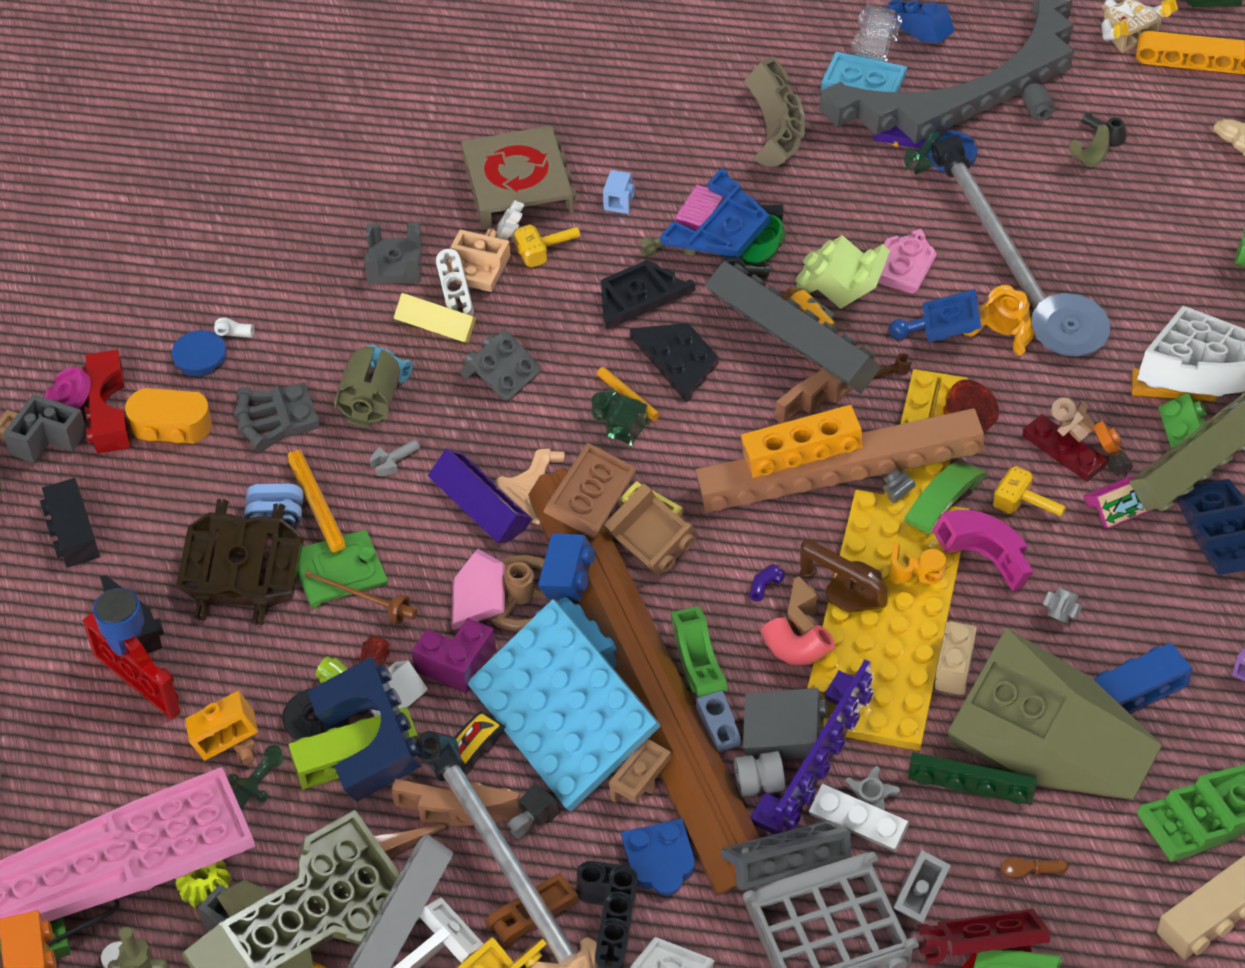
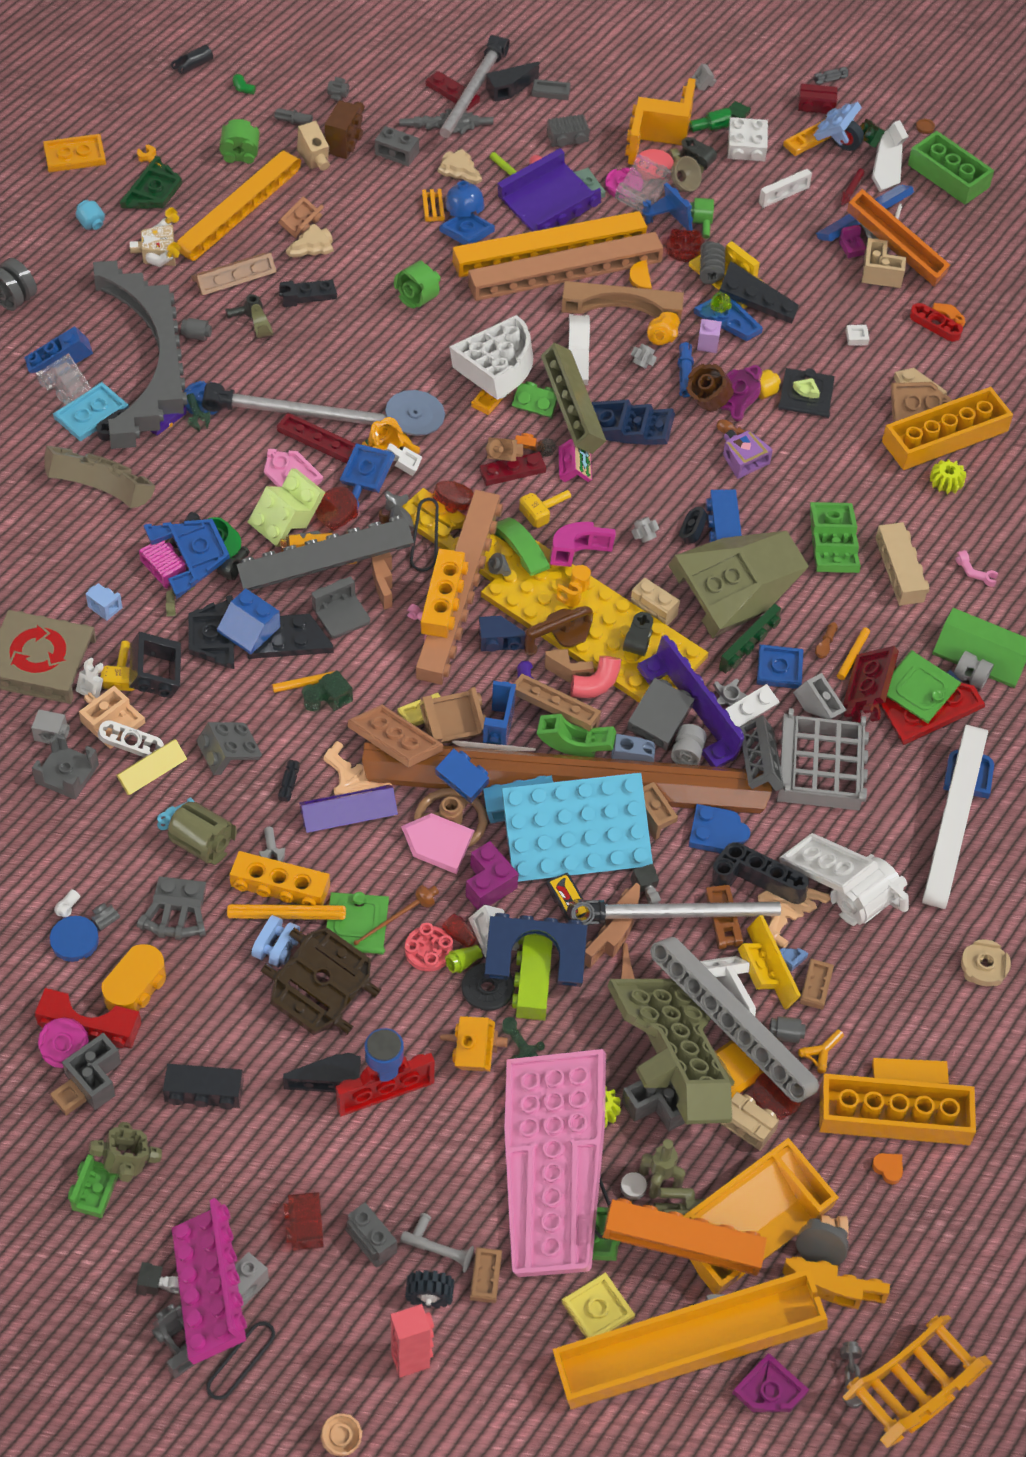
camera: 70 degrees left, 5 degrees up
(235, 363) = (104, 916): none -> dark grey plate
(338, 638) = (428, 947): none -> coral tile
(351, 478) = (271, 871): none -> light orange brick
(435, 222) = (48, 724): none -> light grey brick
(487, 433) = (288, 780): none -> black axle
(579, 249) = (159, 648): none -> black window
(637, 586) = (491, 746): none -> white sticker
(661, 306) = (249, 621): none -> slope
(676, 578) = (503, 700): none -> blue panel
(730, 617) = (557, 702): none -> medium nougat fence
(742, 376) = (339, 608): none -> dark grey bracket
(799, 522) = (499, 634): none -> dark blue slope
(877, 315) = (337, 508): none -> clear red tile
(884, 654) = (639, 634): none -> pearl dark grey piece
(898, 375) = (394, 505): none -> dark grey animal
(901, 394) = (415, 533): none -> black piece
(956, 830) = (779, 666): none -> blue tile
(968, 257) = (316, 437): none -> dark red plate
(994, 345) = (405, 459): none -> white plate
(1038, 905) = (853, 653): none -> light orange bar
(1113, 651) = (693, 525): none -> black plate
(1146, 97) = (234, 273): none -> medium nougat fence
(1173, 165) = (306, 292): none -> black plate

